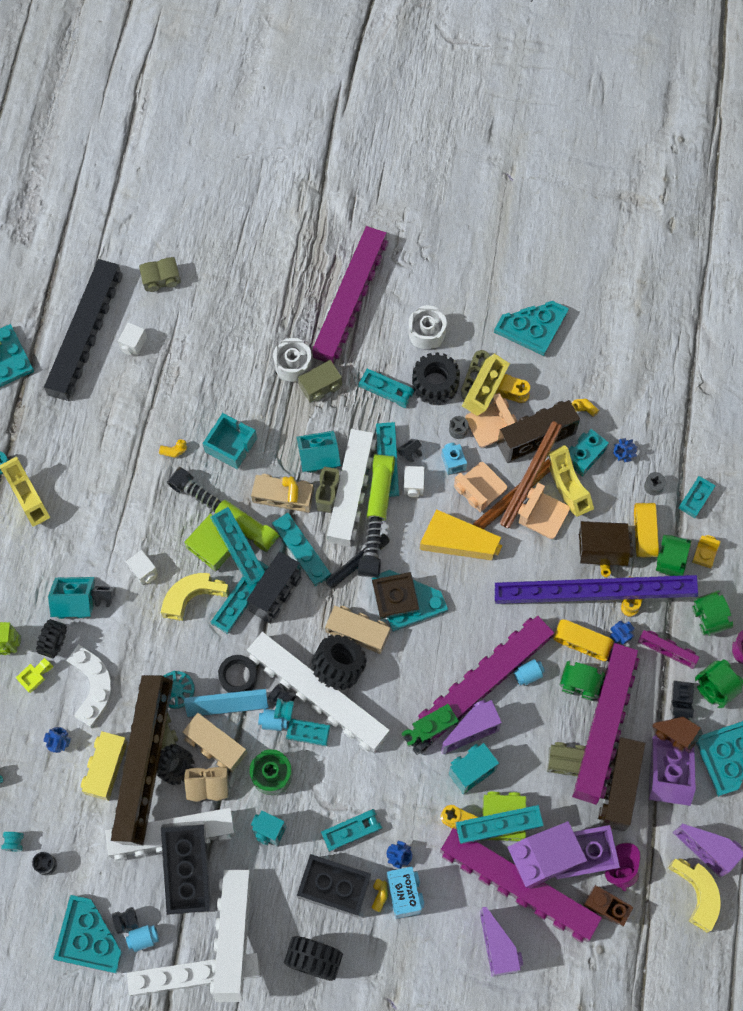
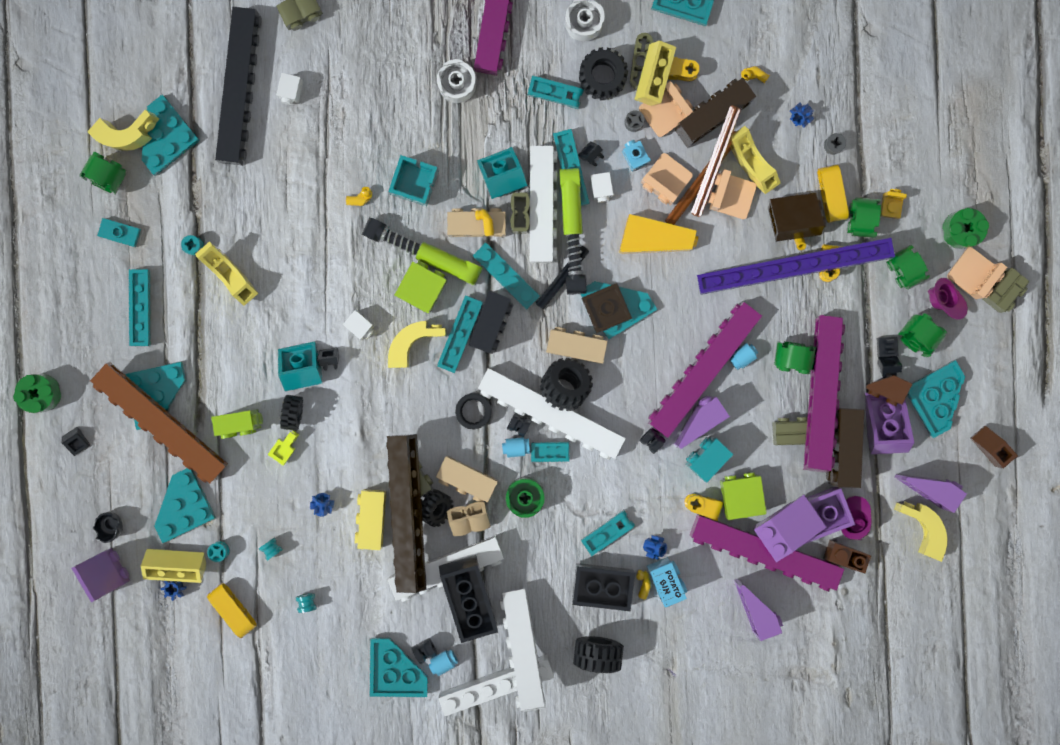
camera: 15 degrees left, 20 degrees up
(40, 863) = (336, 617): black wheel -> none
(99, 681) = (347, 444): white plate -> none
(178, 688) = (421, 433): teal wheel -> none
(226, 702) = (469, 439): medium azure tile -> none
(238, 546) = (447, 291): teal plate -> none
(268, 828) = (534, 549): teal brick -> none
(284, 709) = (525, 440): teal wheel -> none
(320, 381) = (488, 98): olive brick -> none
(431, 725) = (664, 427): green plate -> none
(499, 824) = (742, 508): teal plate -> none
(583, 640) = (789, 315): yellow beam -> none
(587, 451) = (765, 123): teal brick -> none
(622, 632) = (824, 301): blue gear -> none
(668, 648) = (870, 308): magenta plate -> none
(696, 497) = (877, 149): teal plate -> none

